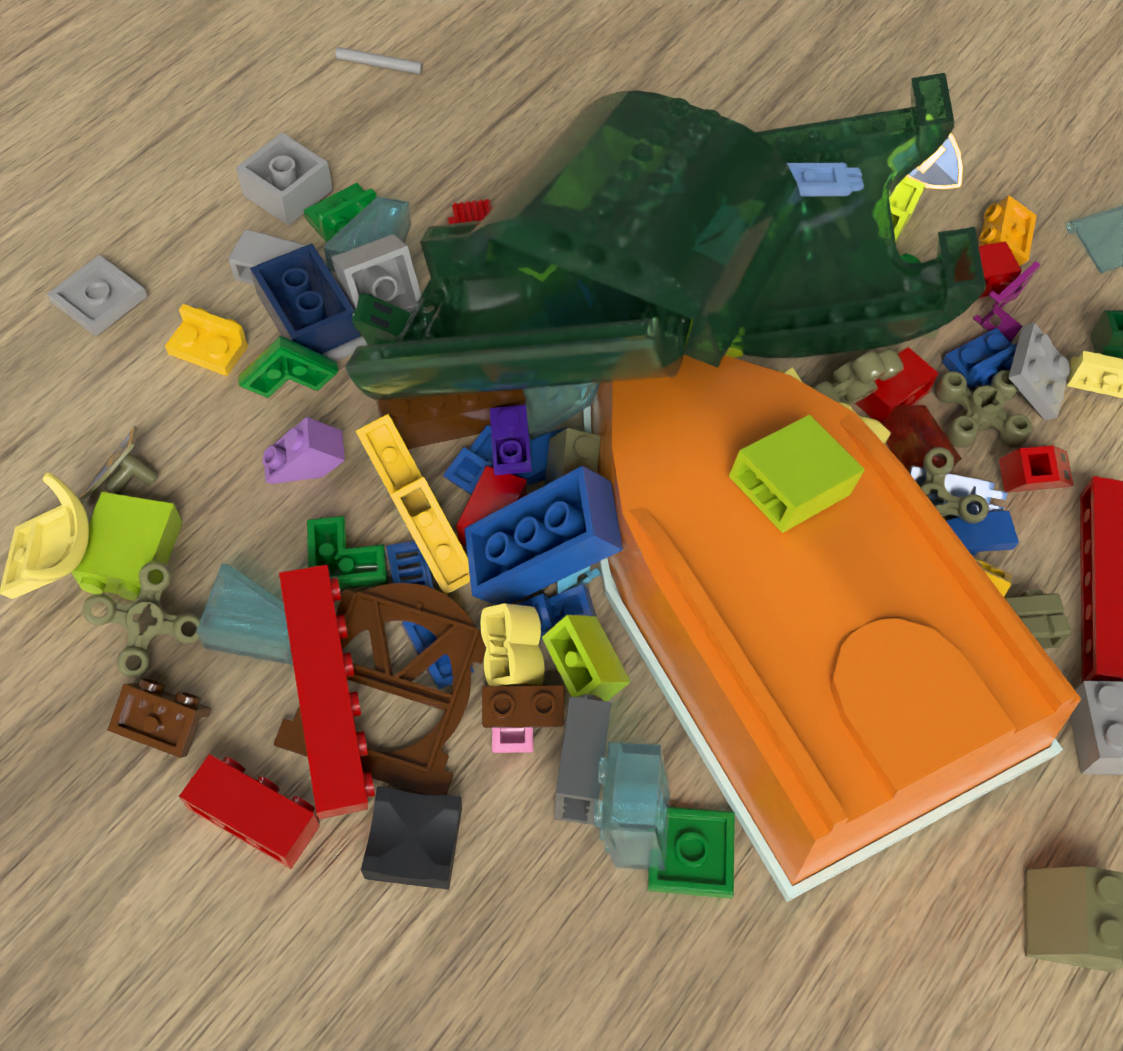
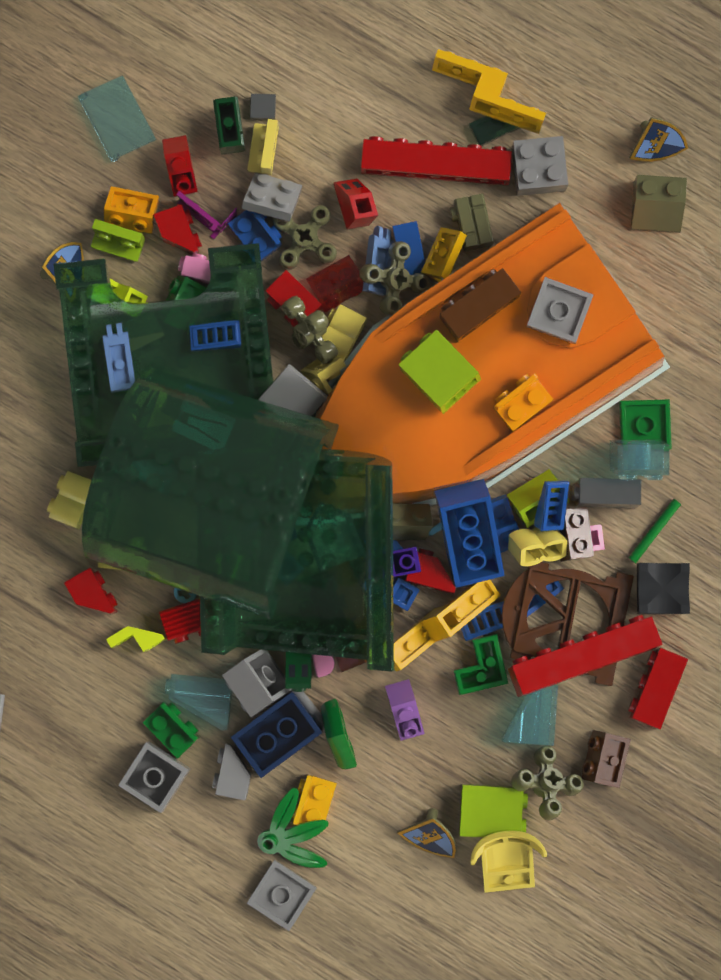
camera: 90 degrees left, 25 degrees up
(165, 302) = (284, 838): none -> green plant
(464, 184) = (145, 639): none -> neon yellow slope
(513, 843) = (654, 531): none -> green bar
(522, 147) = (89, 592): none -> red slope
(543, 665) = (557, 521): none -> blue slope
(744, 591) = (523, 402): none -> light orange bracket
(766, 341) = (294, 392): none -> light grey tile
(837, 265) = (225, 344): none -> blue slope
(898, 659) = (560, 310): none -> light grey plate
(904, 545) = (479, 304): none -> reddish brown brick
(967, 208) = (117, 240): none -> lime bracket
(1072, 282) = (179, 165): none -> red slope

